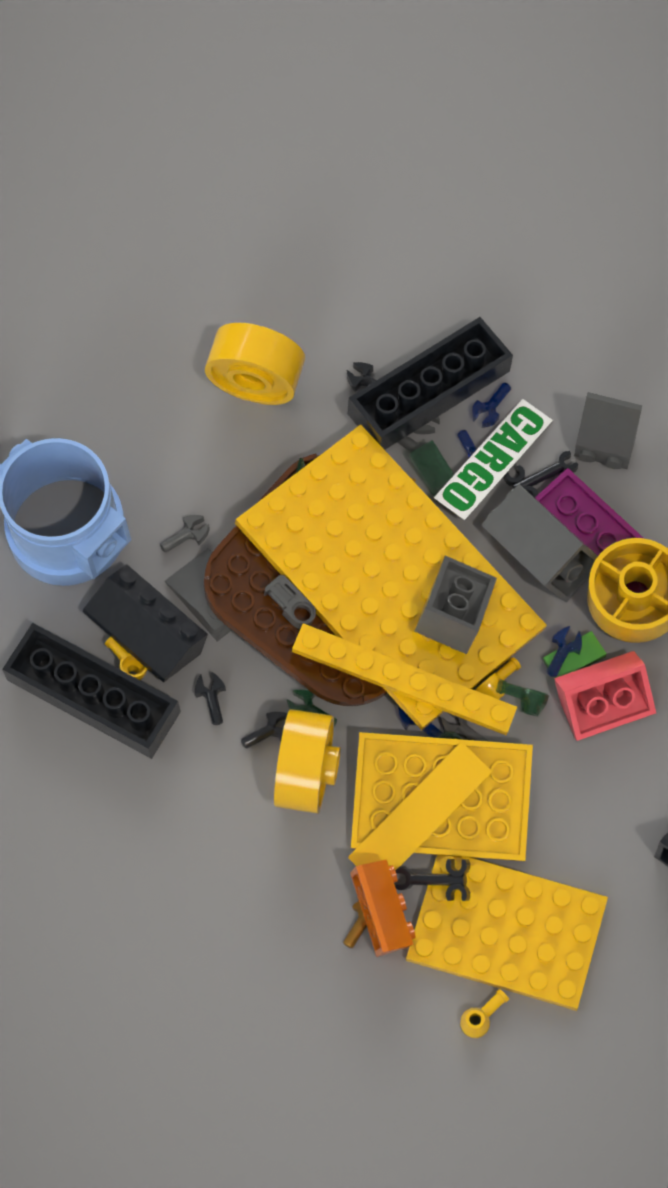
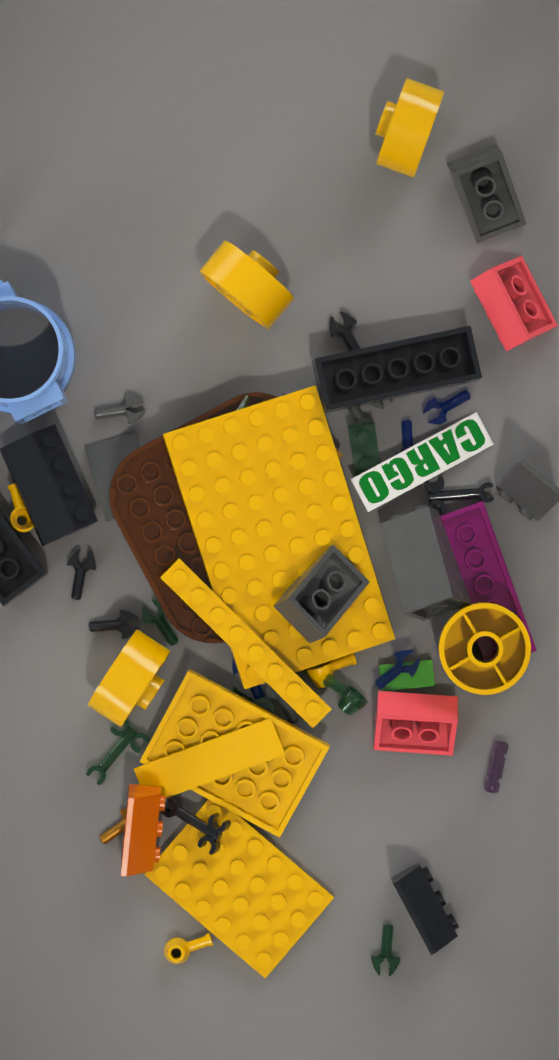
camera: 20 degrees right, 20 degrees up
(290, 599) = (179, 525): dark grey piece -> none
(328, 830) = (128, 736): none -> clear green bar
(341, 175) = (407, 127): none -> yellow piece
(440, 210) = (487, 193): none -> dark grey slope
(509, 290) = (513, 303): none -> coral slope

